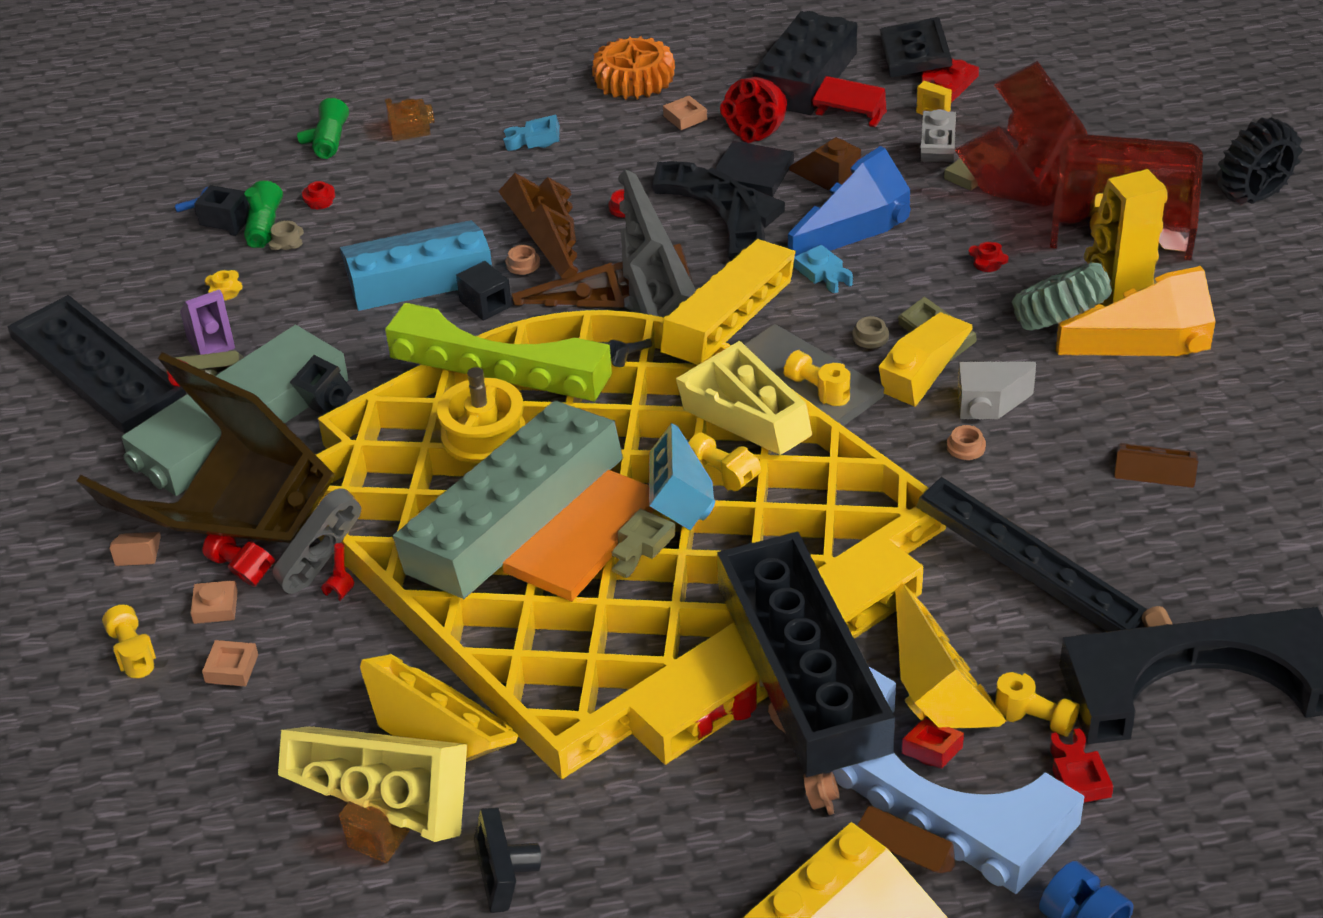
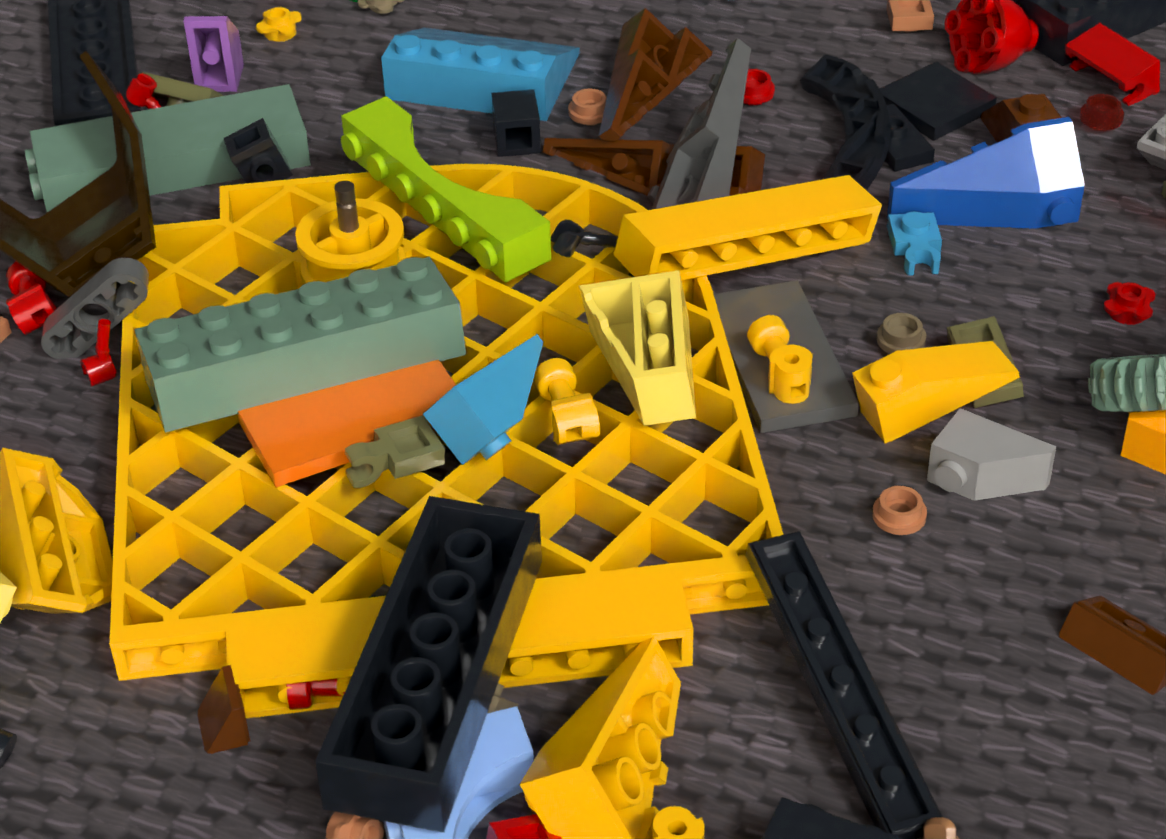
camera: 30 degrees right, 0 degrees up
(663, 761) = (223, 715): none -> reddish brown slope
(868, 137) = (1102, 112): none -> clear red plate

